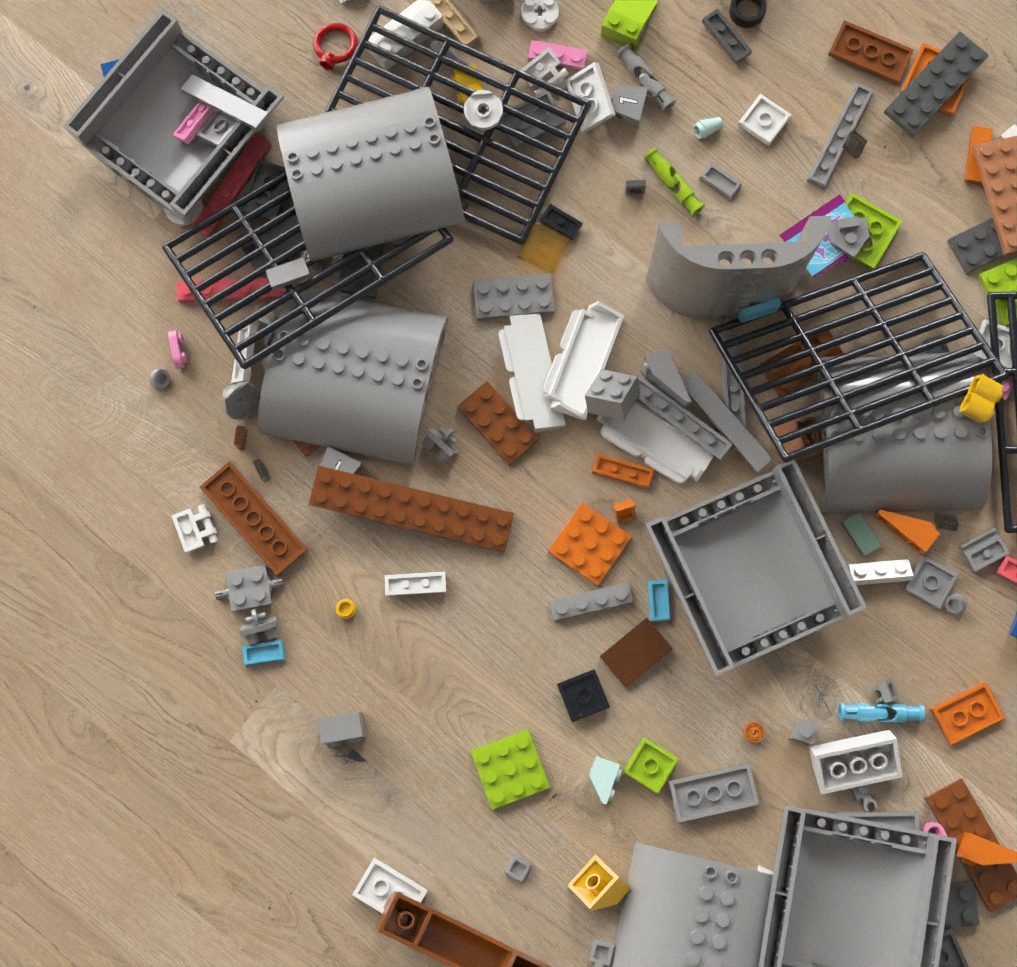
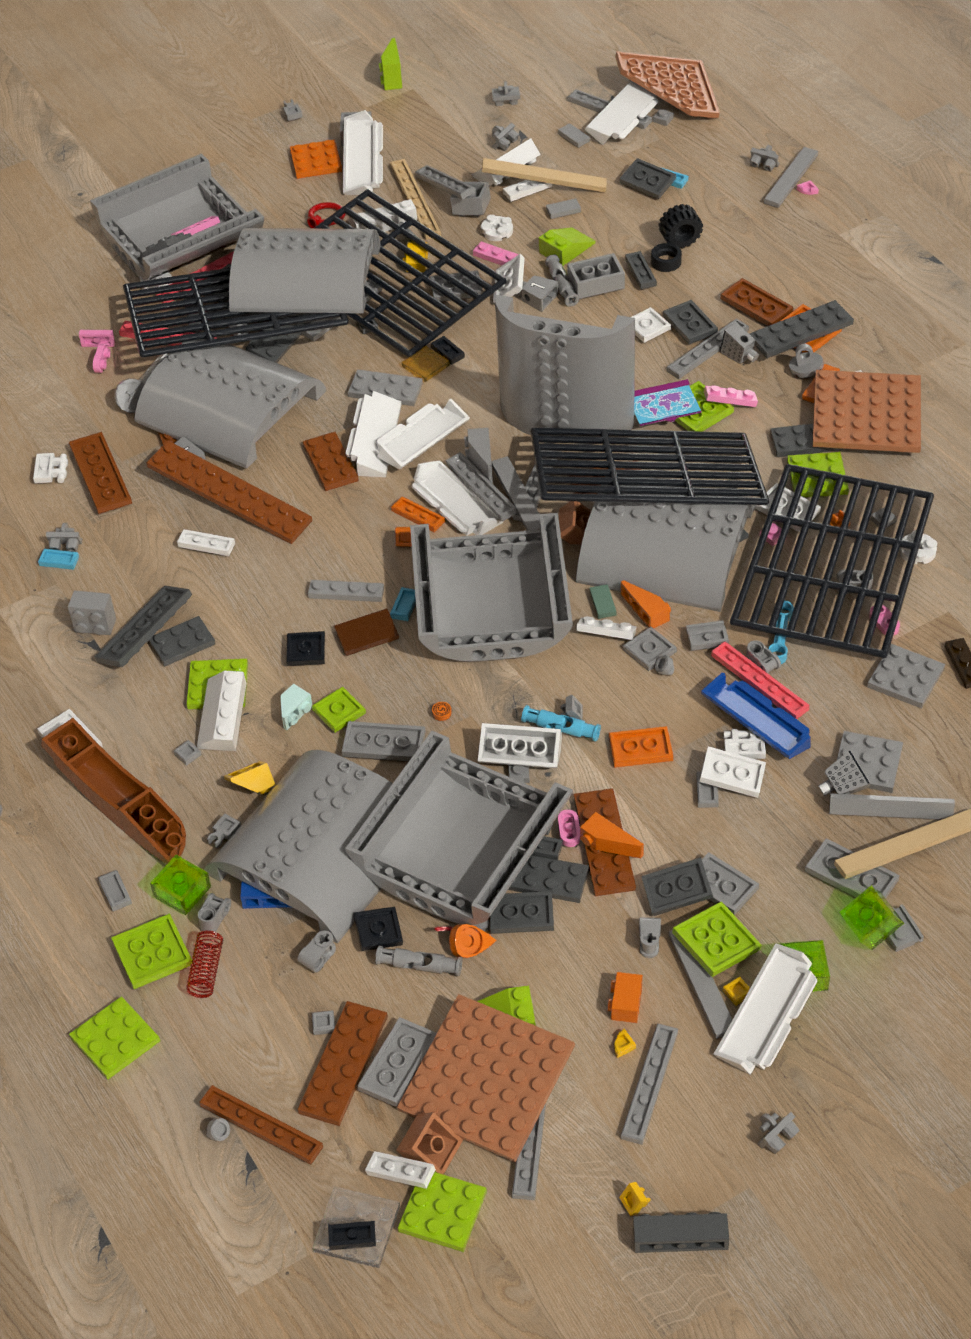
camera: 20 degrees right, 30 degrees down
(159, 378) = (77, 372): light grey tile -> none
(164, 317) = (93, 338): none -> bright pink plate
(183, 165) = (165, 242): none -> dark grey plate
(226, 103) = (219, 214): tile -> none
(240, 437) = (119, 420): reddish brown tile -> none
(249, 588) = (74, 513): light grey plate -> none
(262, 471) = (123, 443): clear smoke tile -> none
(288, 273) = (207, 312): light grey tile -> none
(345, 608) = (140, 545): yellow plate -> none
(401, 723) = (143, 626): none -> dark grey plate
(434, 437) = (281, 456): light grey hips -> none
(447, 724) = (181, 641): none -> dark grey plate
(488, 120) = (409, 265): white plate -> none
(536, 814) = (222, 711): none -> white slope
(542, 65) = (482, 253): white plate -> none
(589, 544) = (365, 553): orange plate -> none
(612, 394) = (430, 452): light grey brick -> none
(685, 64) = (596, 275): none -> light grey brick
(707, 127) = (597, 319): light aqua cone -> none
(759, 310) = (577, 421): medium azure tile -> none
(803, 731) = (483, 713): light grey brick -> none
(809, 102) = (690, 322): none -> dark grey plate
(848, 234) = (681, 401): light grey plate -> none
(854, 144) = (716, 354): clear smoke tile -> none
(878, 128) = (738, 344): none -> light grey torso
(894, 206) = (730, 396): none -> bright pink plate
(946, 521) = (681, 607): clear smoke tile -> none
(955, 133) = (805, 363): none -> light grey tile
(981, 399) = (734, 503): yellow brick -> none

